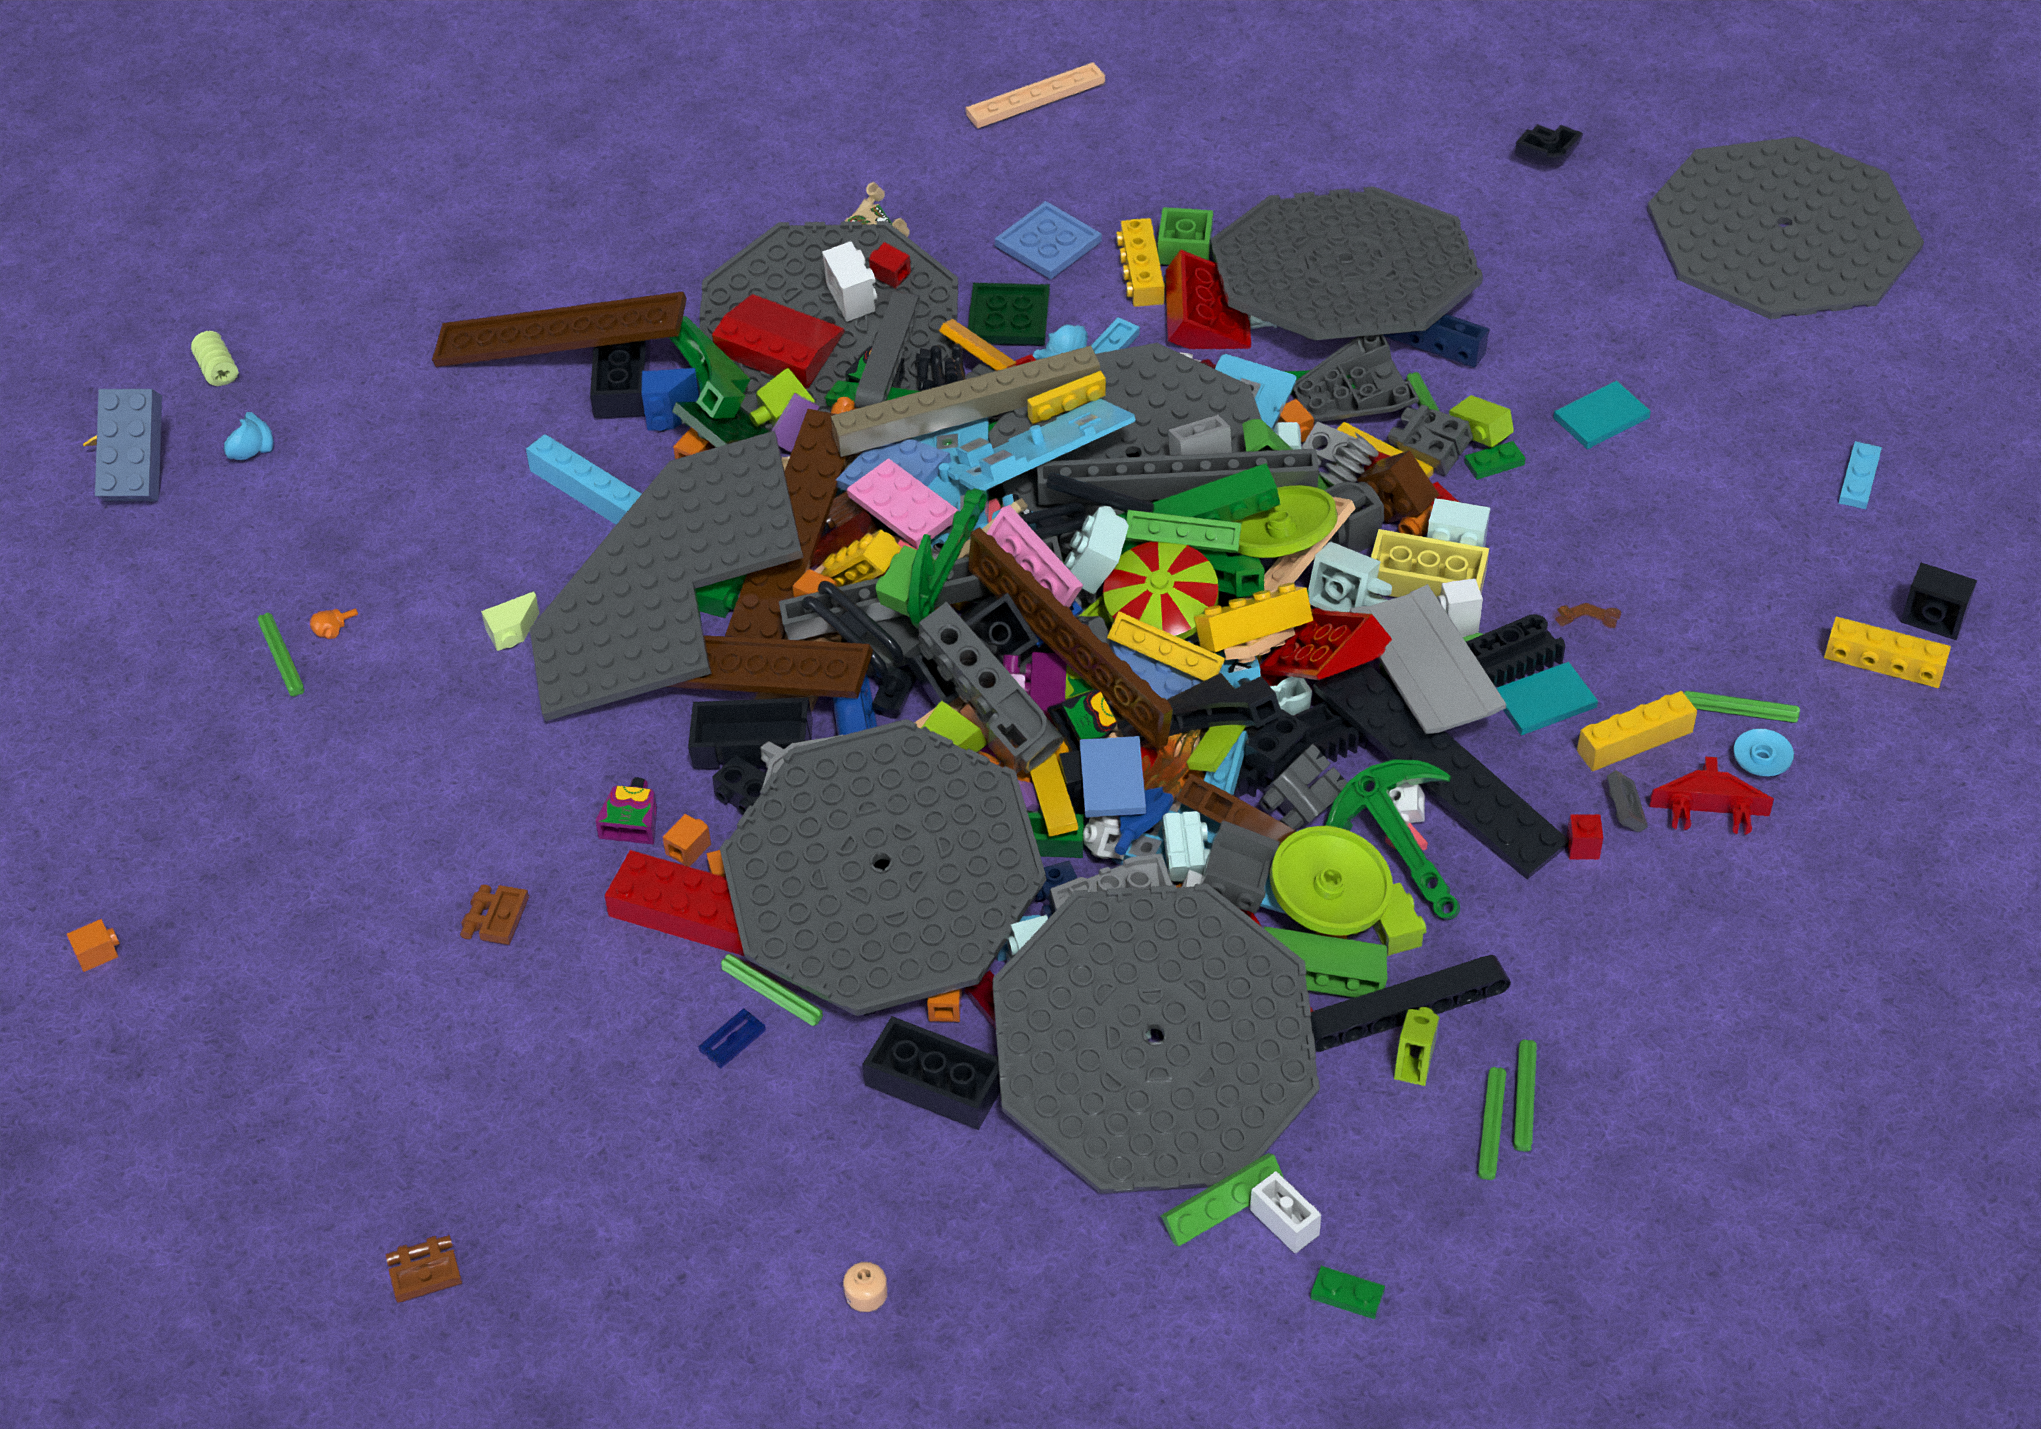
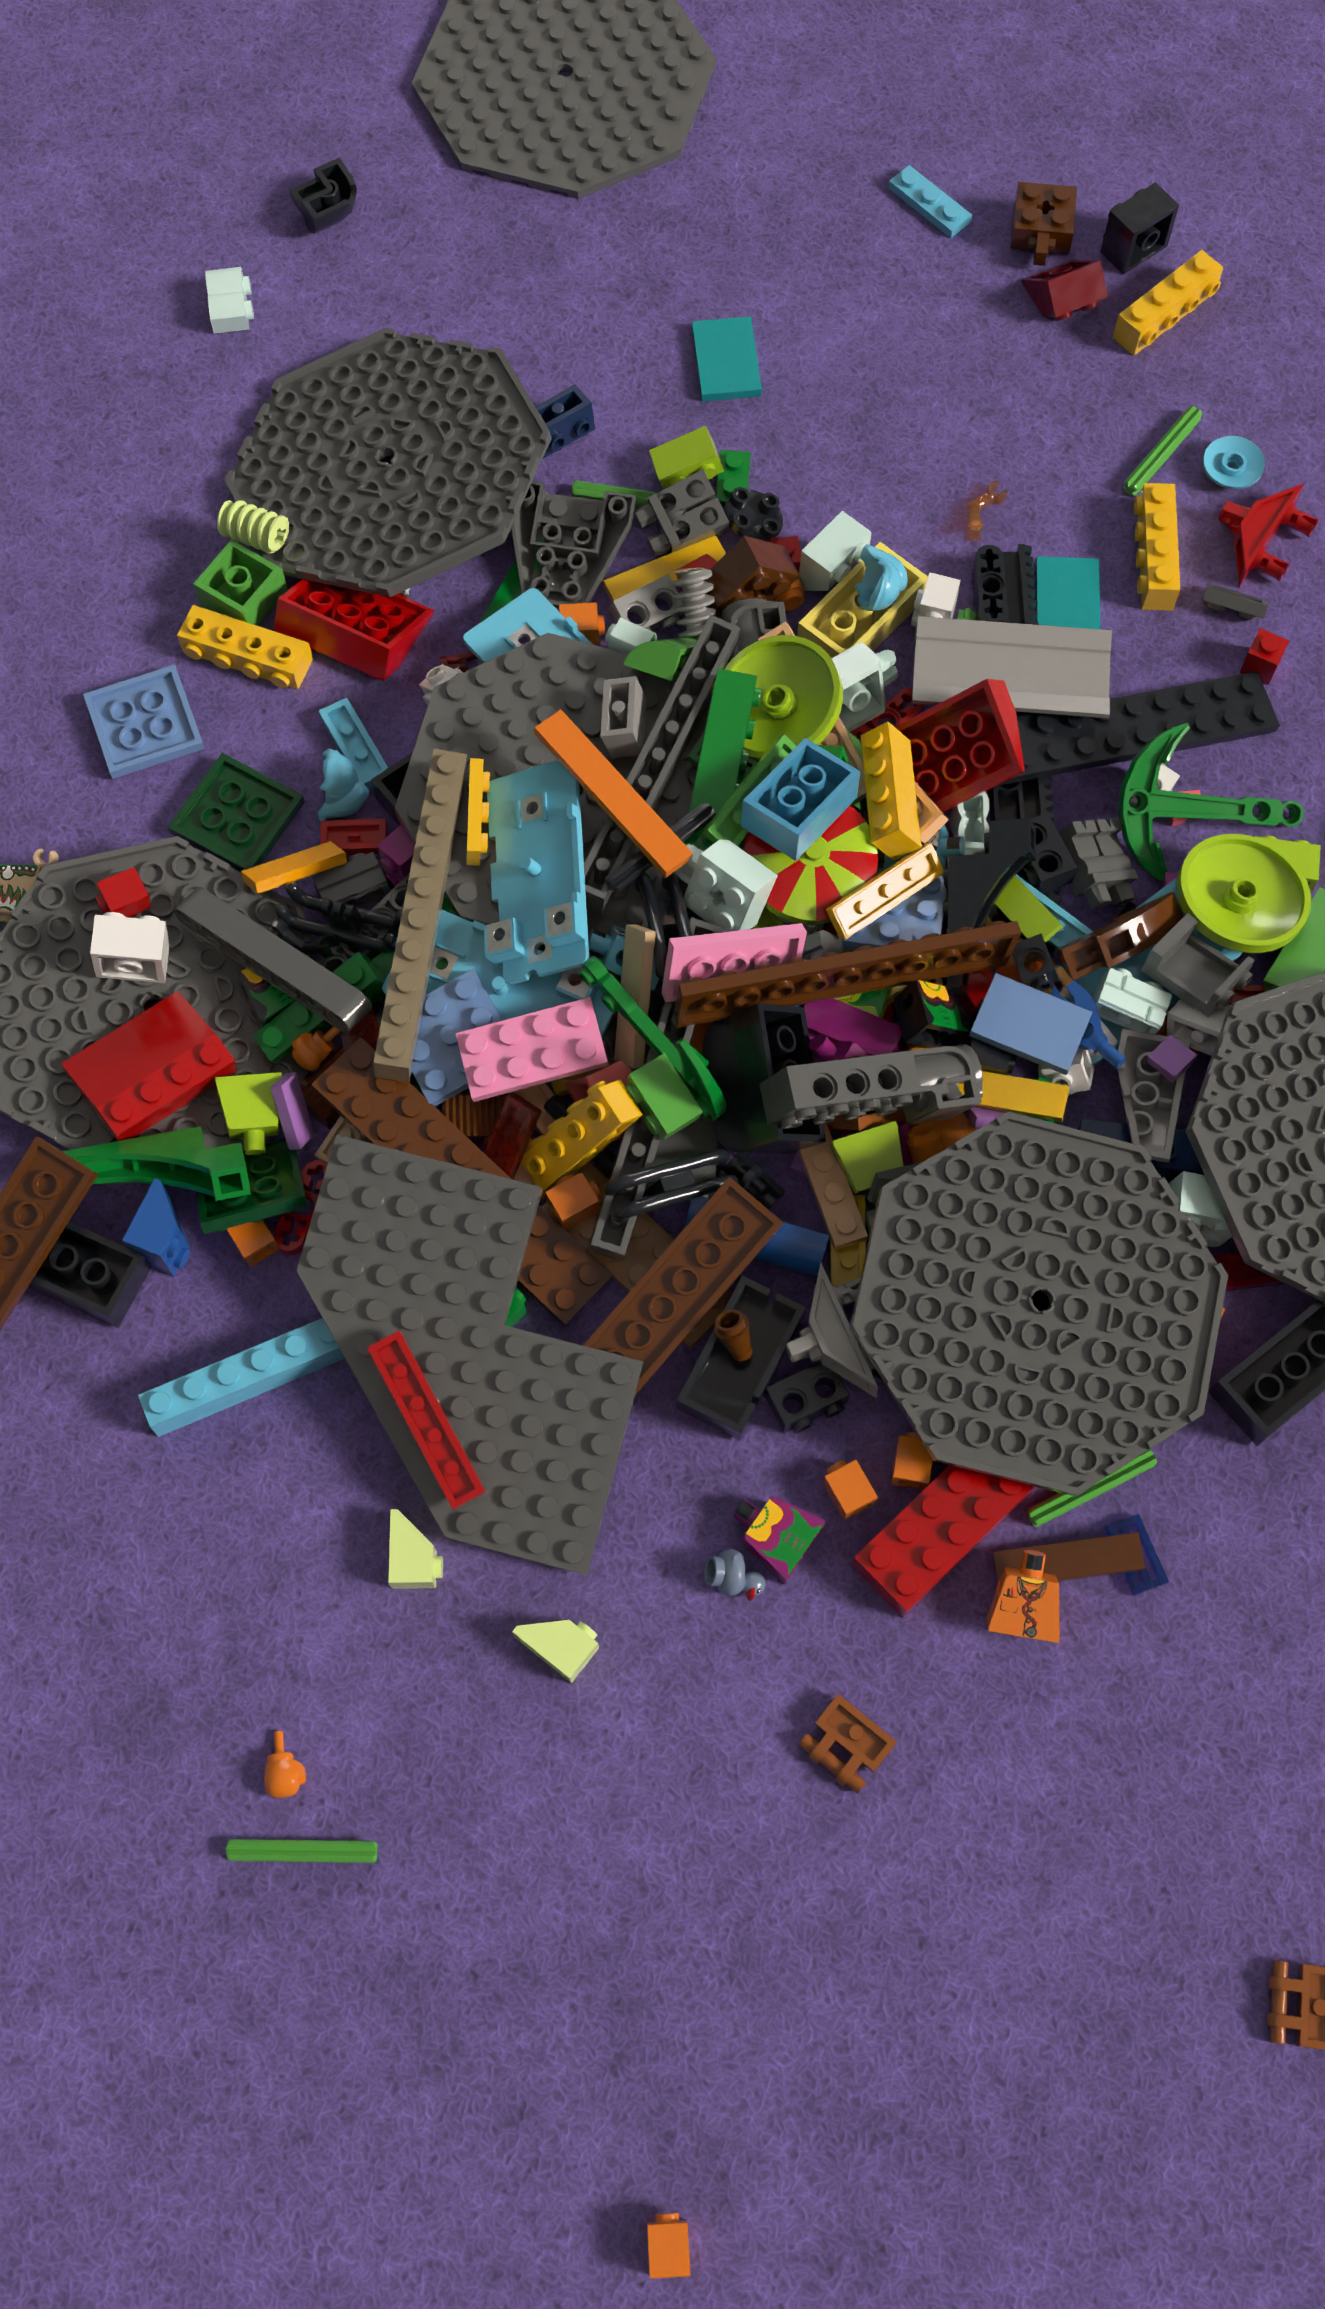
camera: 65 degrees left, 20 degrees up
(485, 725) = (560, 1645): none -> yellowish green slope
(583, 796) = (729, 1575): none -> sand blue animal
(599, 569) = (426, 1420): none -> red plate
(652, 972) = (1026, 1601): none -> orange torso
(702, 992) = (1081, 1557): none -> reddish brown tile
(759, 707) = (734, 1333): none -> reddish brown cone
(1117, 445) = (613, 793): none -> orange tile
(1146, 878) = (1171, 1058): none -> medium lavender tile
(1166, 760) = (1034, 950): none -> black brick
(1185, 545) = (800, 799): none -> dark azure brick
(1229, 214) = (252, 526): none -> yellowish green piece
(1420, 136) = (228, 300): none -> light aqua brick
(1445, 553) = (881, 581): none -> medium azure hair
(1466, 479) = (754, 514): none -> black dish
(1844, 584) = (1067, 288): none -> dark red slope
(1897, 544) = (1043, 219): none -> reddish brown hinge

